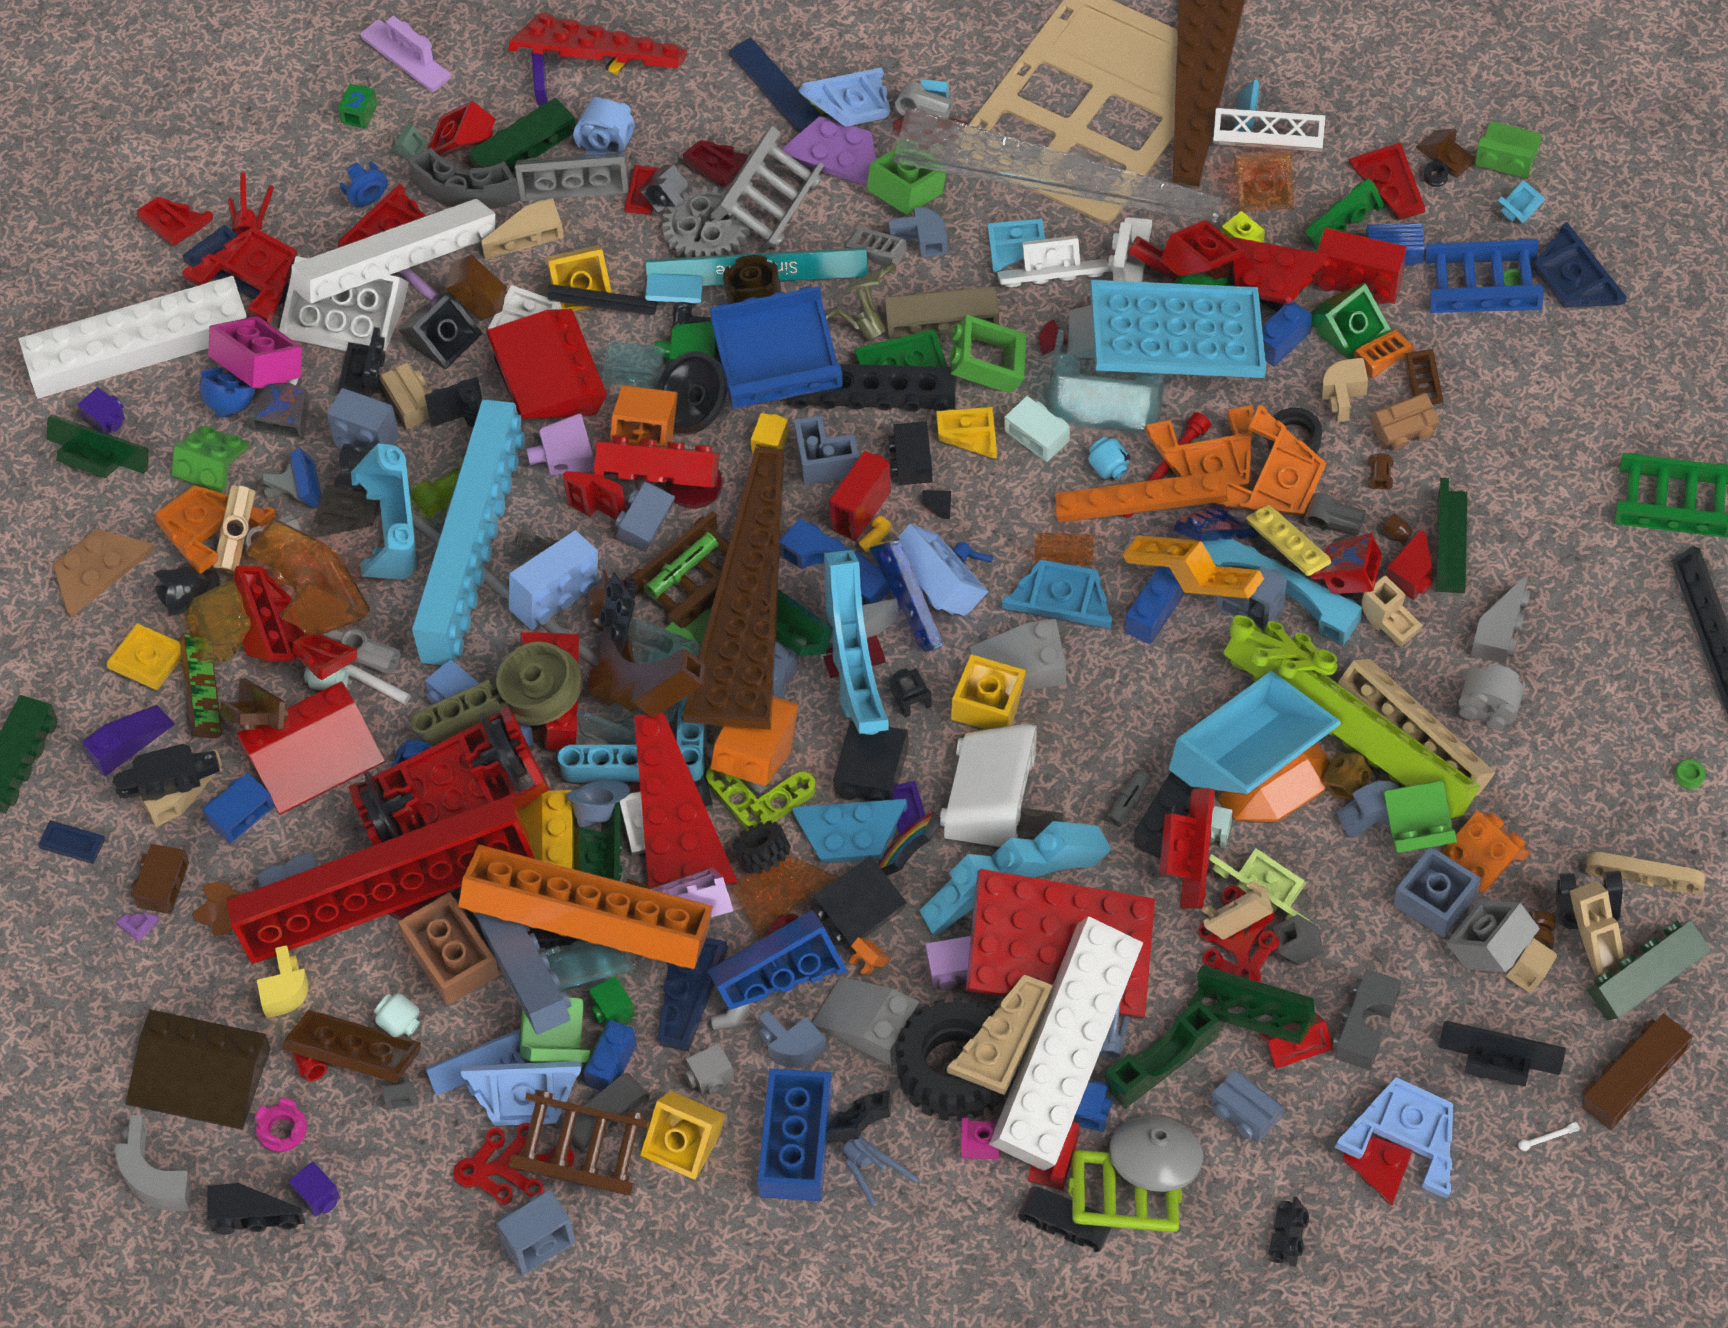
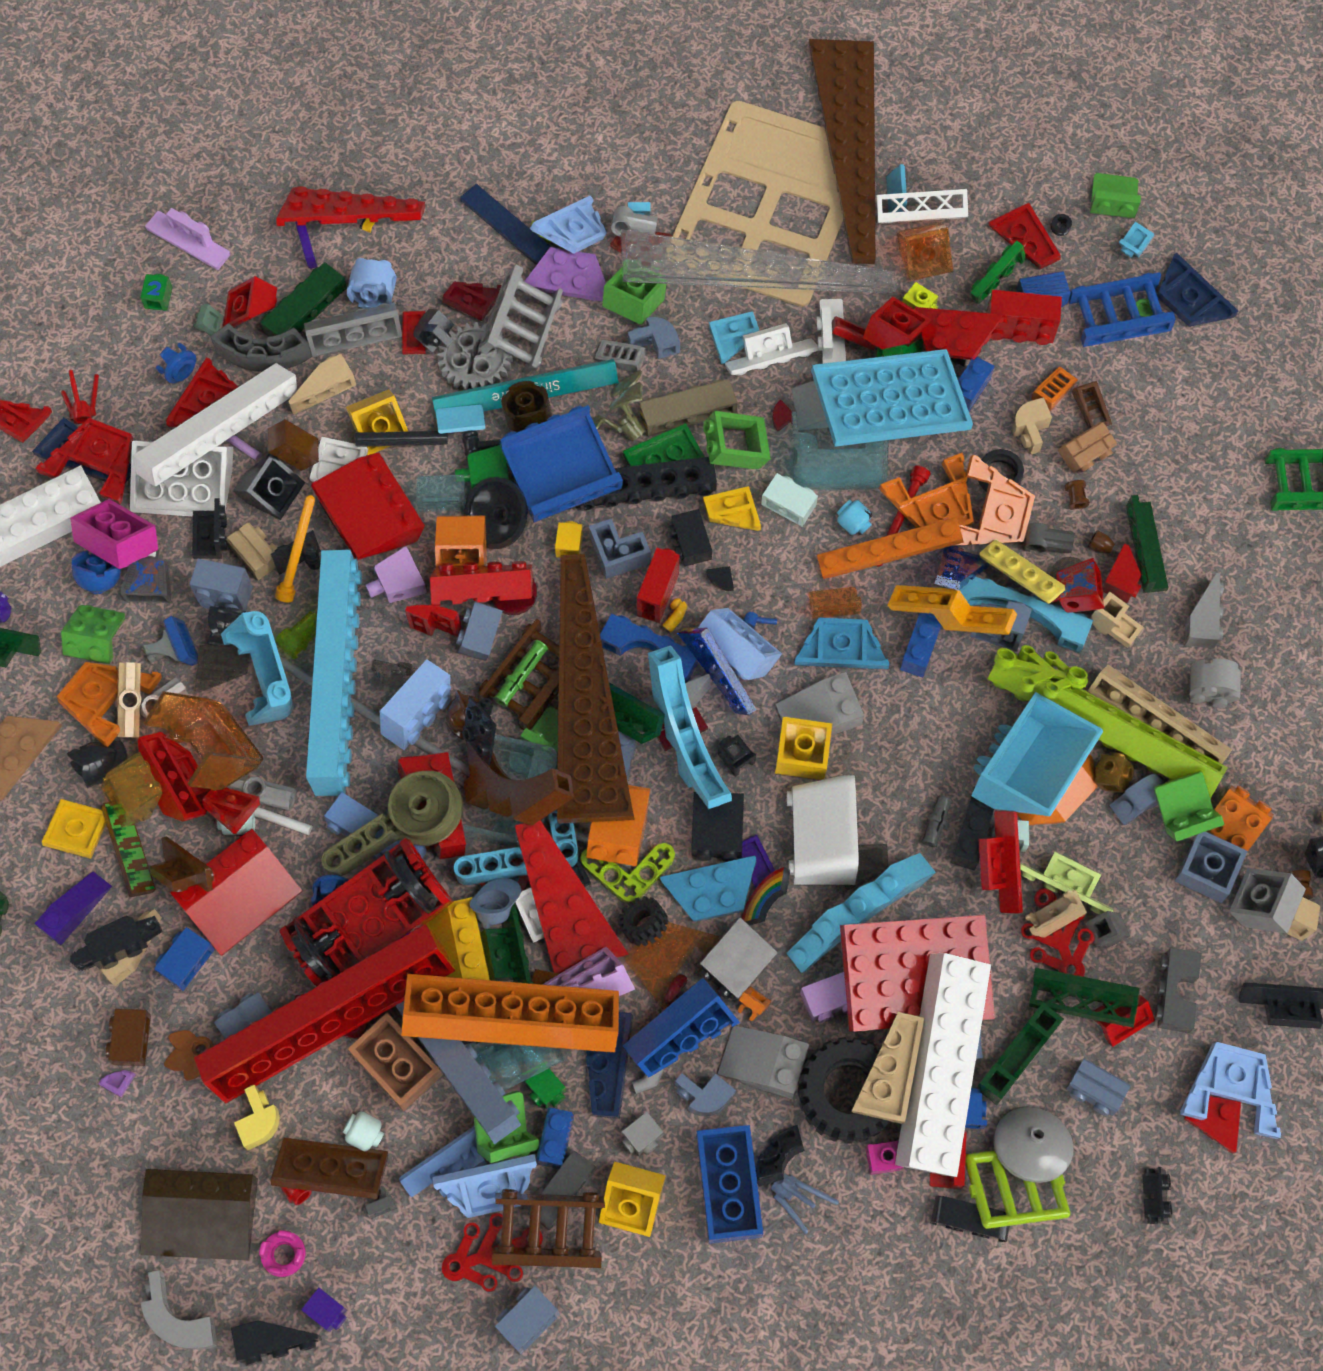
camera: 15 degrees left, 10 degrees up
(71, 842) = (43, 1013): dark blue tile -> none
(434, 443) = (285, 591): none -> light orange piece
(1350, 320) = (1023, 365): green slope -> none
(1442, 147) = (1060, 201): reddish brown slope -> none

